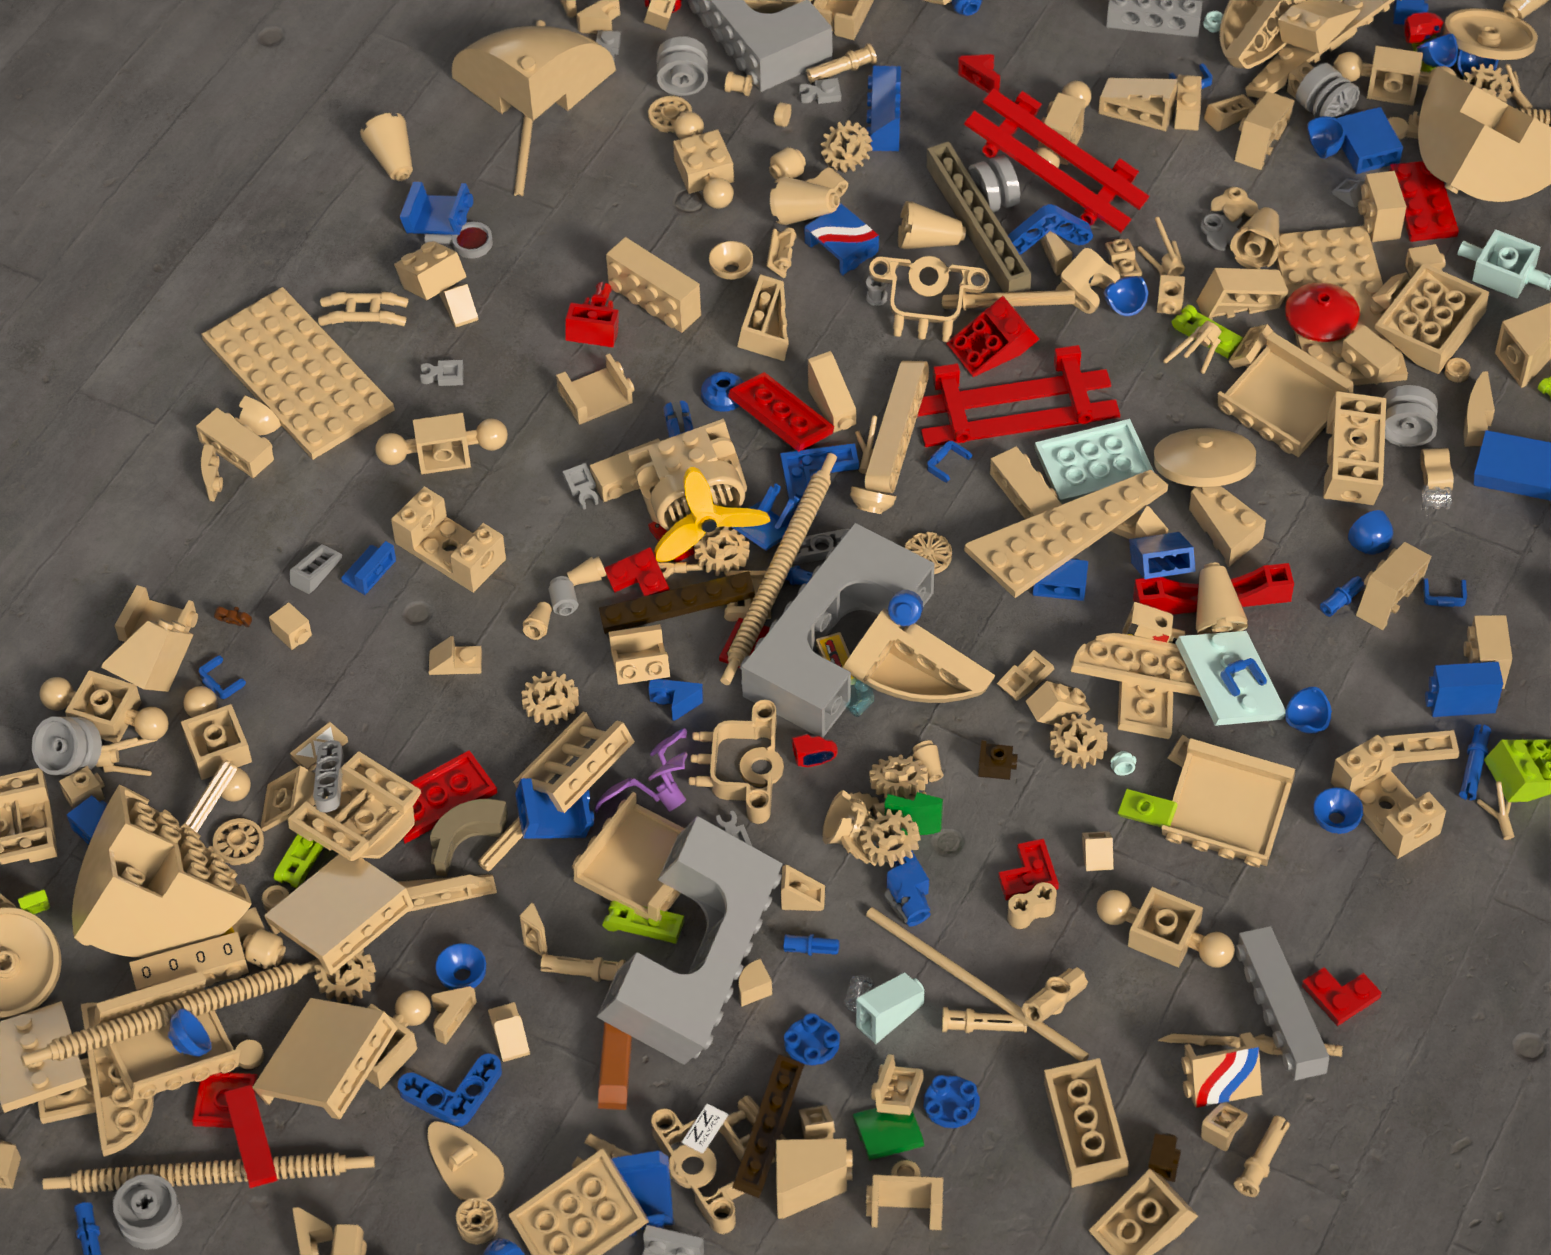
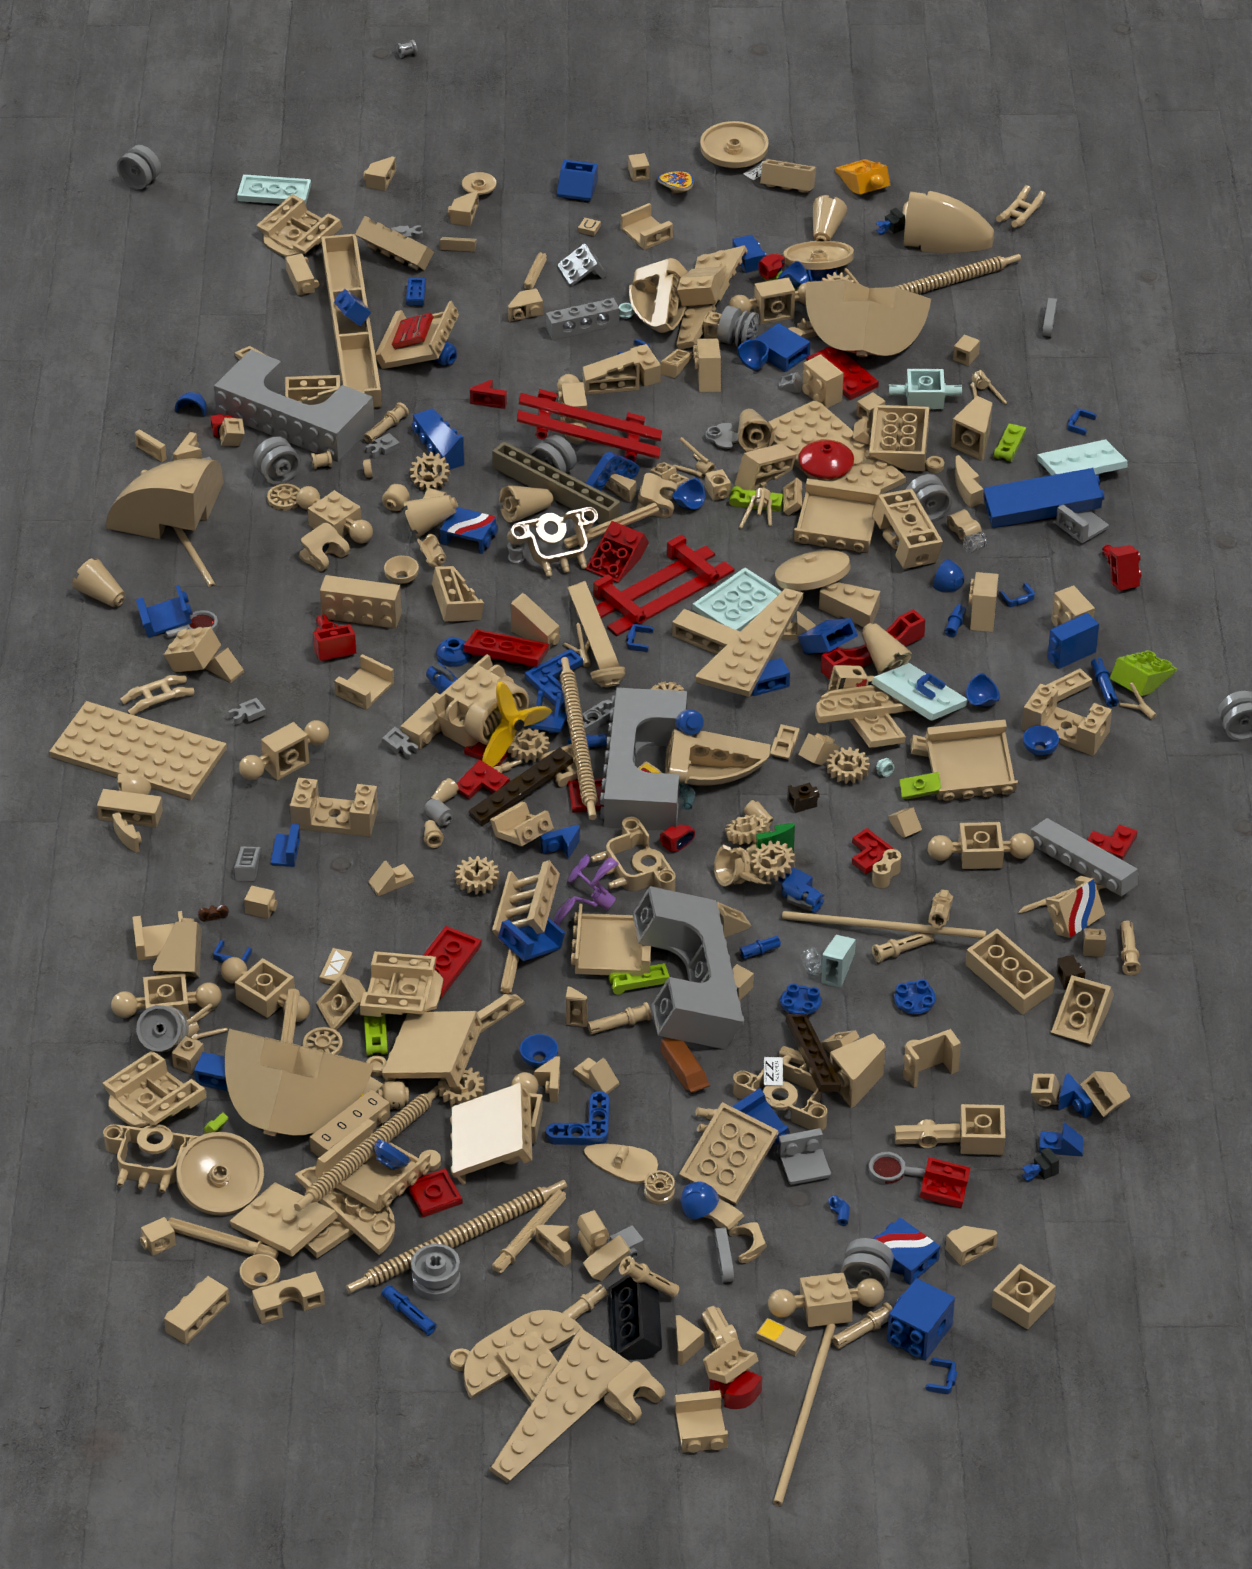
camera: 30 degrees left, 10 degrees down
(251, 1136) = (473, 1200): red tile -> none
(284, 1209) = (508, 1255): none -> tan axle
(325, 776) = (365, 973): light grey beam -> none
(464, 821) = (476, 966): dark tan arch -> none
(662, 189) = (320, 542): none -> tan piece
(887, 1133) = (889, 1027): green slope -> none
(896, 1088) = (877, 1001): tan bracket -> none
(1234, 204) = (721, 416): tan plate -> none
(1370, 354) = (877, 471): tan brick -> none

